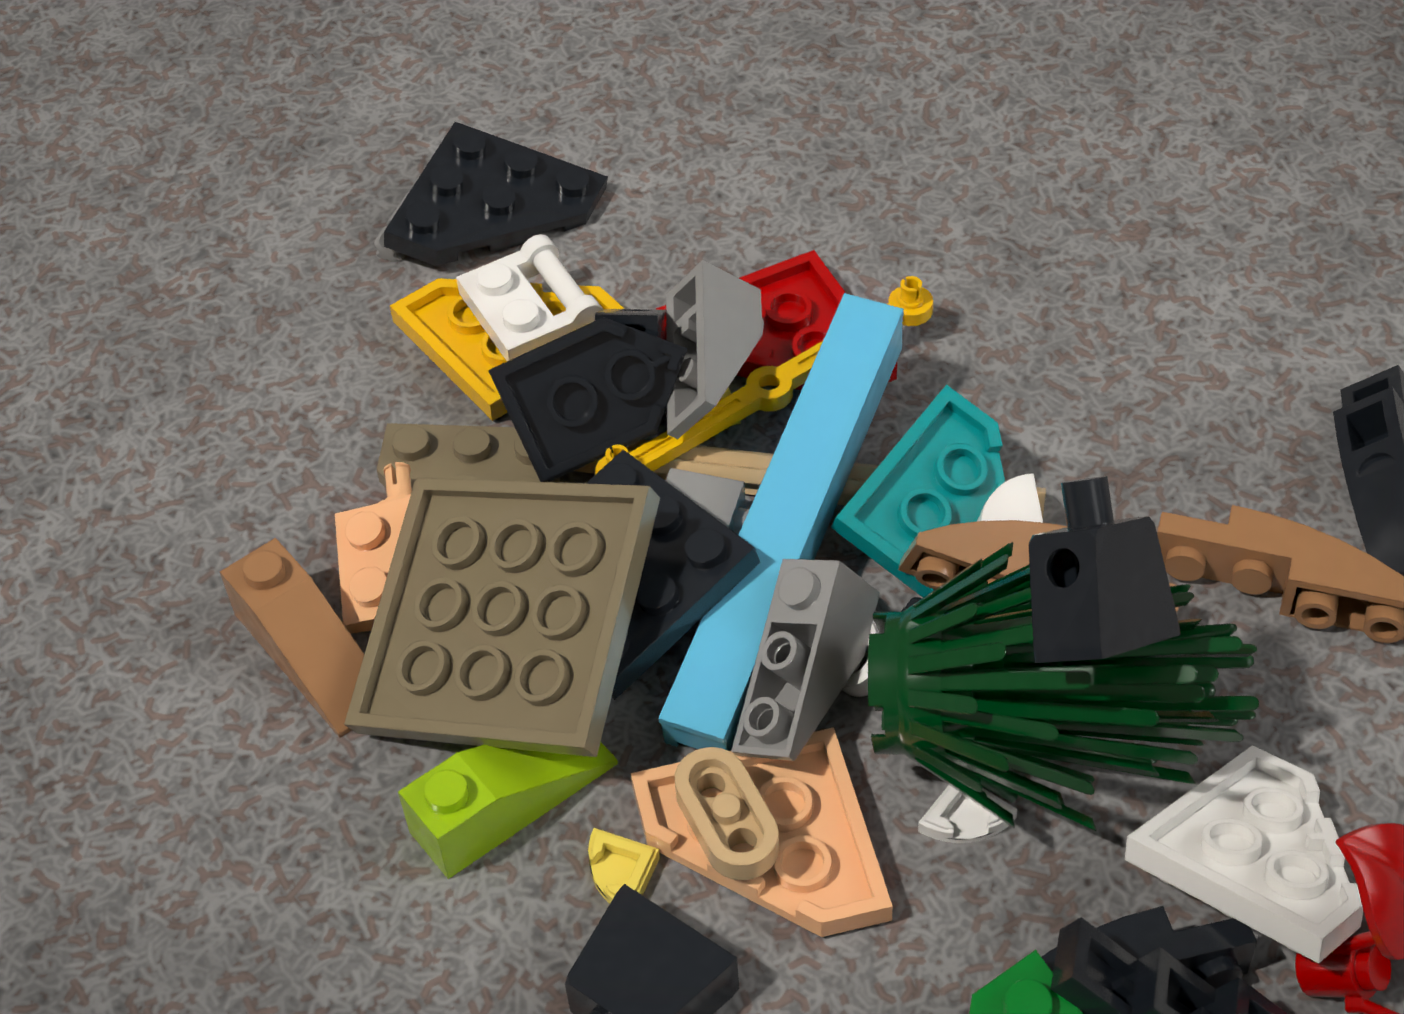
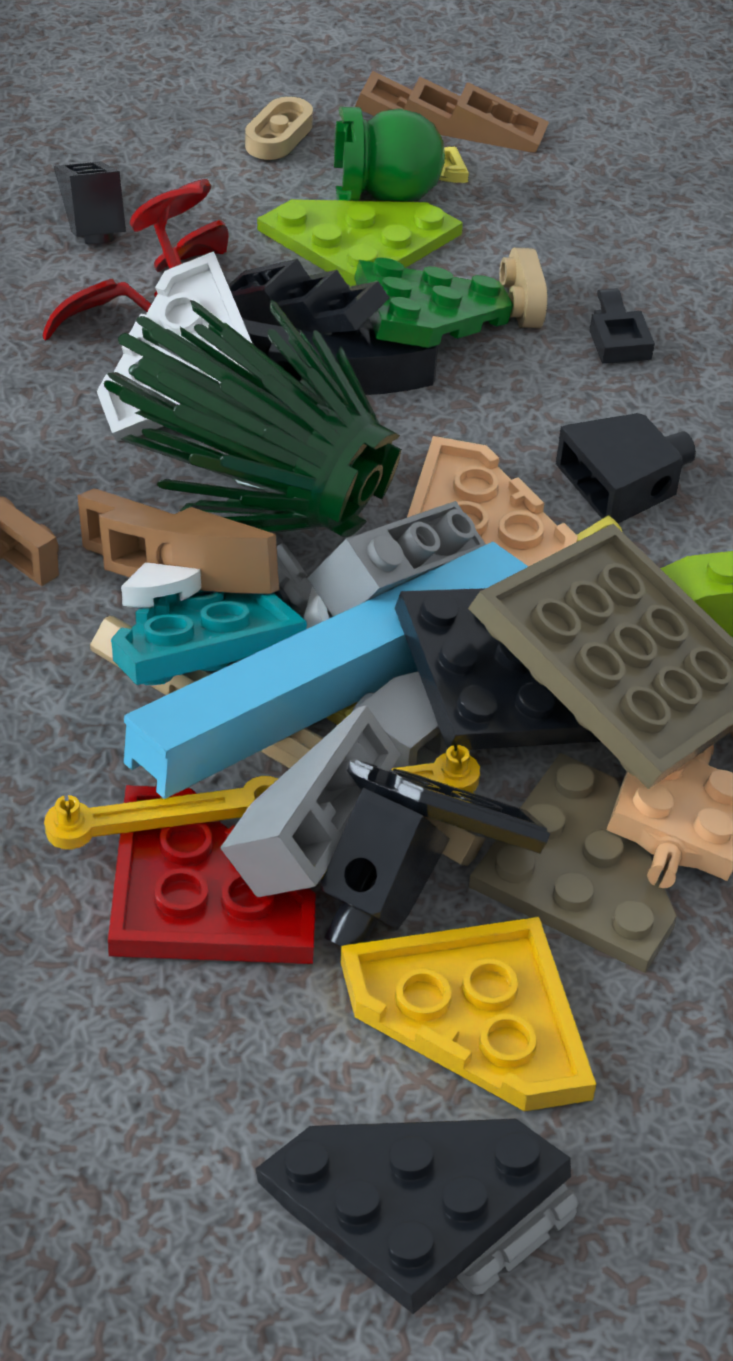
camera: 160 degrees left, 5 degrees down
(512, 308) = (468, 998): white plate -> none
(730, 817) = (519, 499): tan plate -> none
(1097, 581) = (244, 283): black torso -> none

